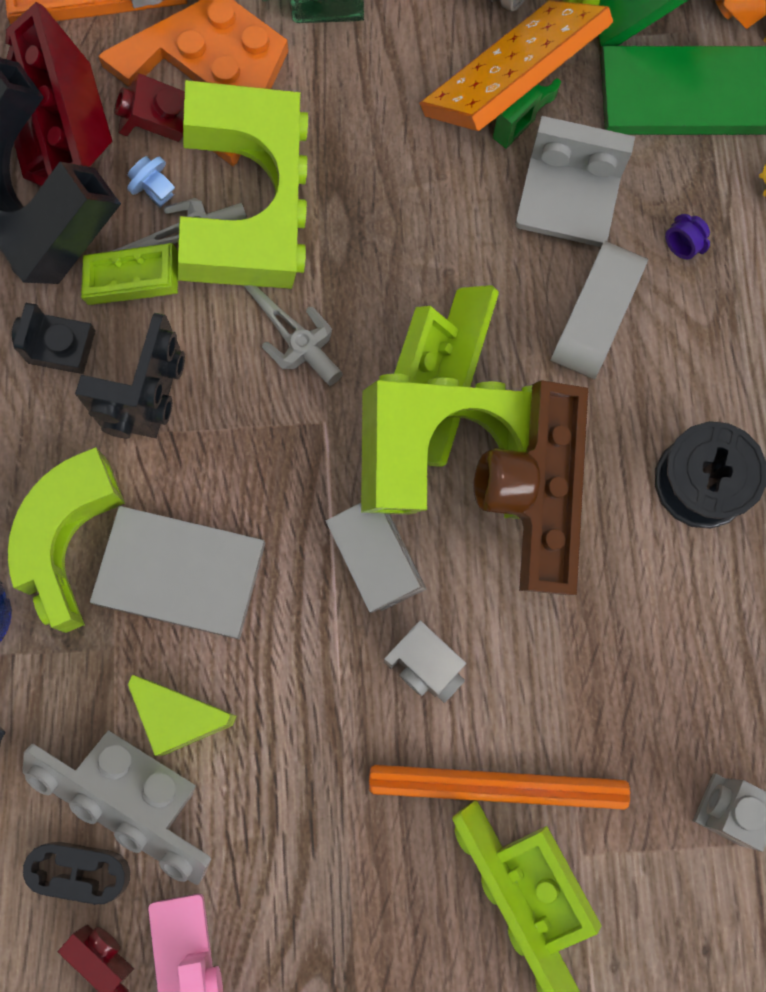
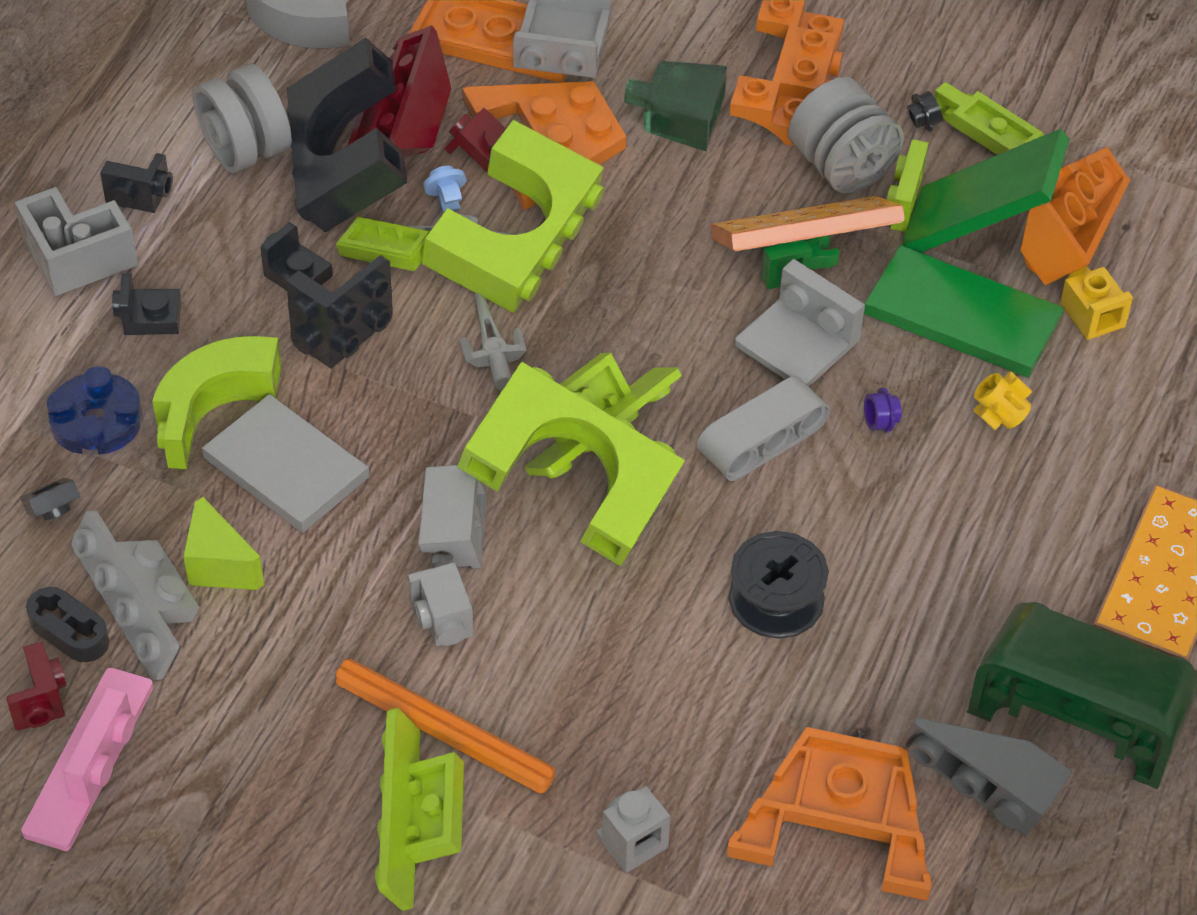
camera: 30 degrees right, 25 degrees down
(543, 487) = (612, 503): reddish brown plate -> none

